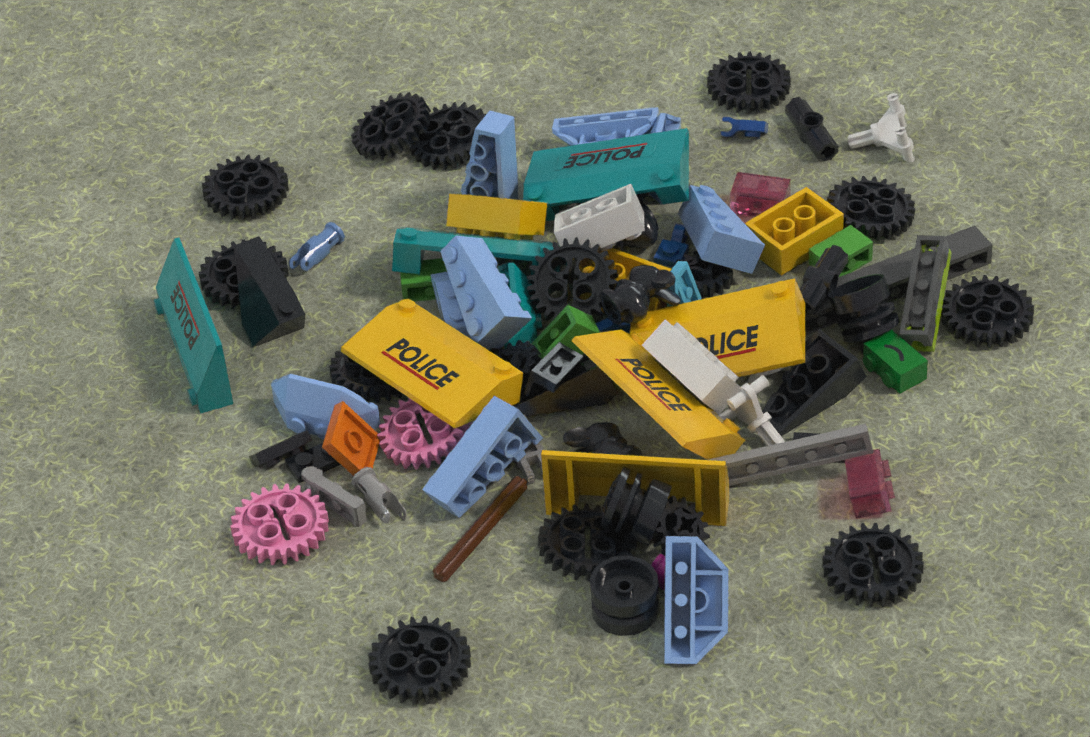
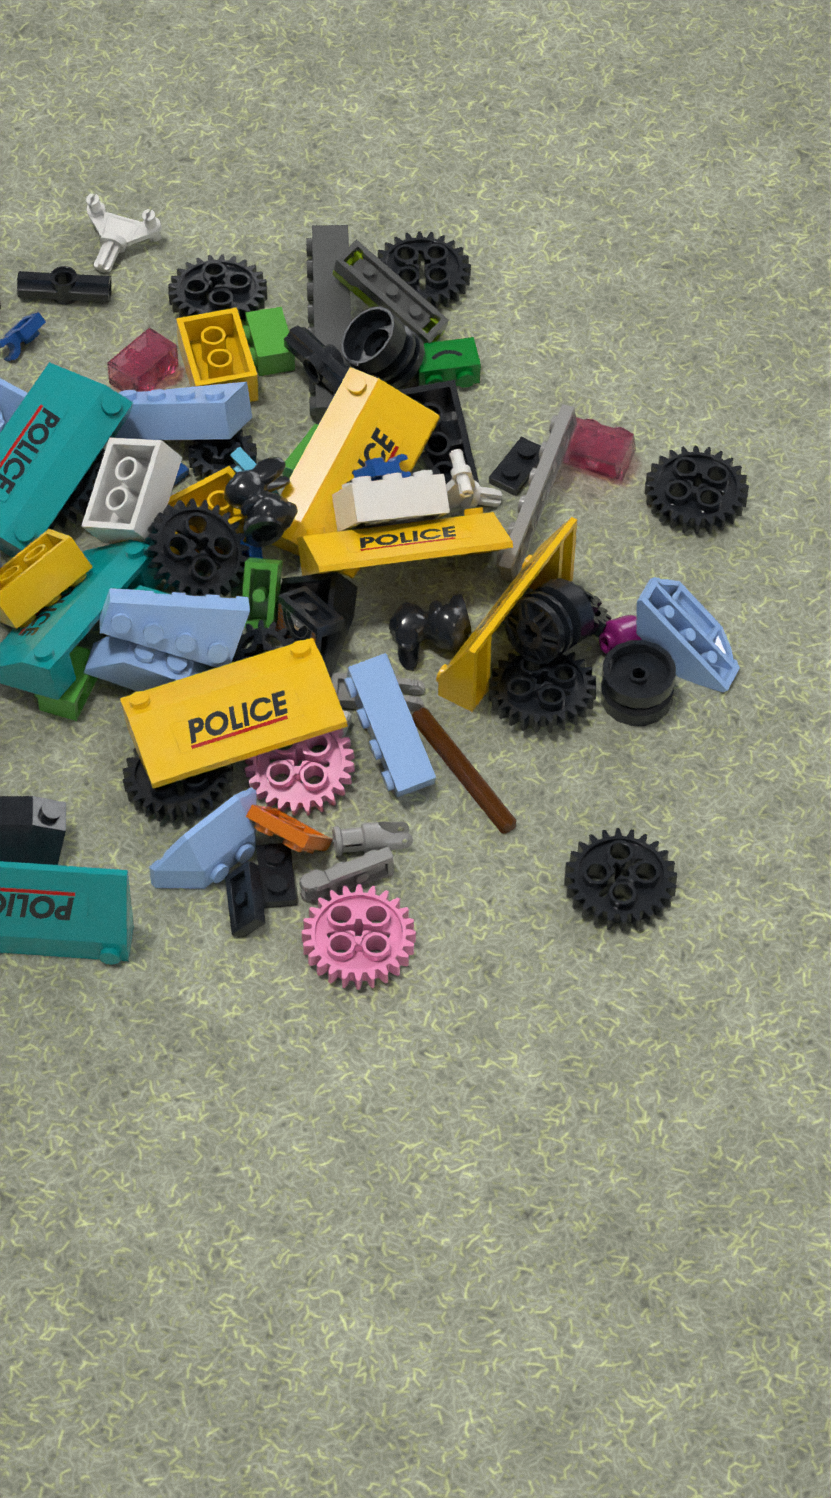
camera: 70 degrees left, 10 degrees up
(715, 343) = (377, 468): none -> blue plate

